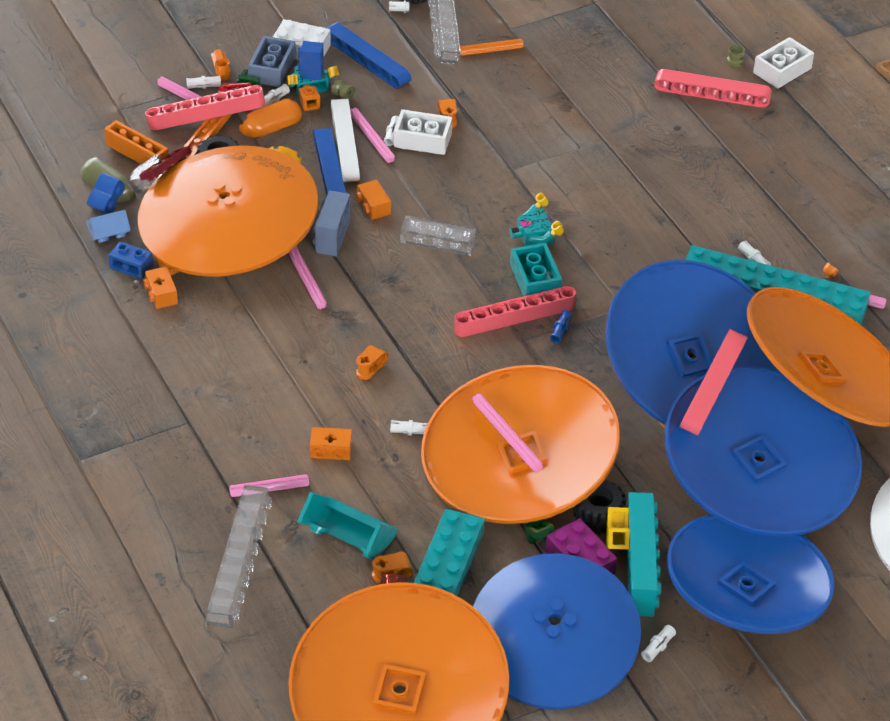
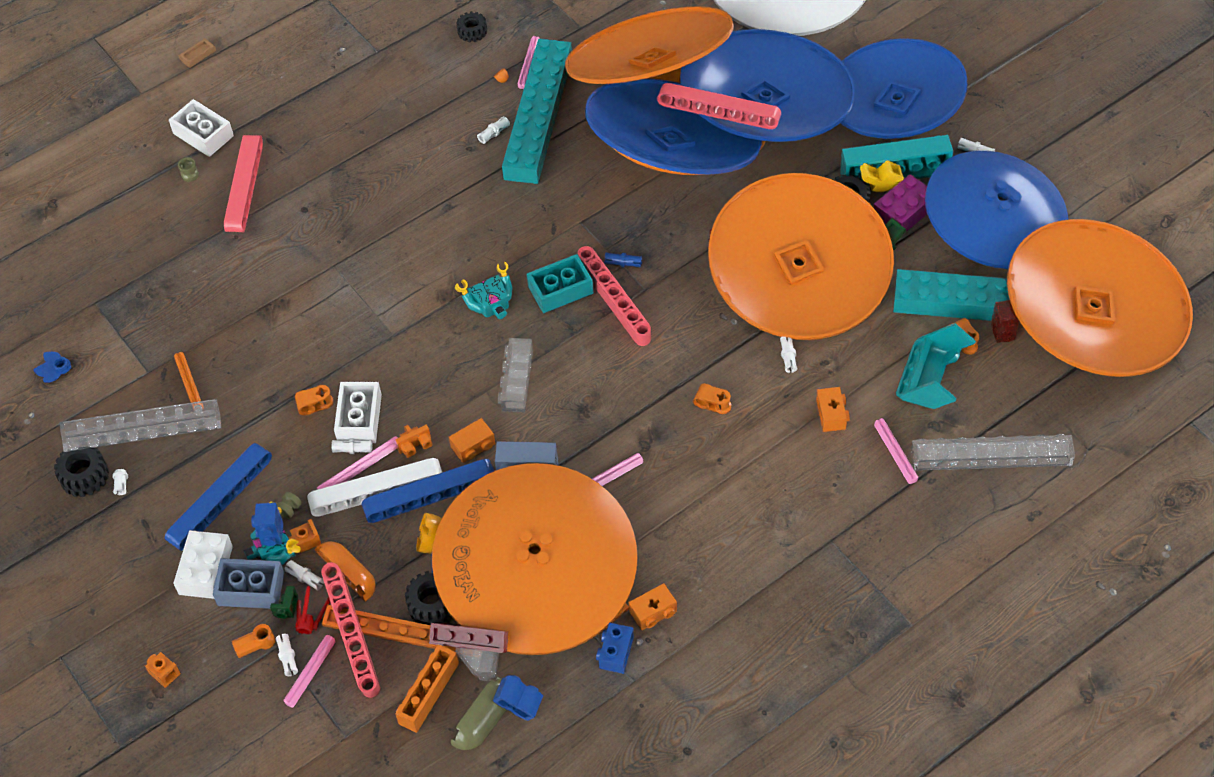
camera: 95 degrees left, 10 degrees up
(108, 225) = (563, 686): medium blue slope -> none
(215, 19) = (162, 669): none -> orange brick
(386, 165) = (412, 438): none -> orange hips
(508, 433) = (796, 262): bright pink axle -> none

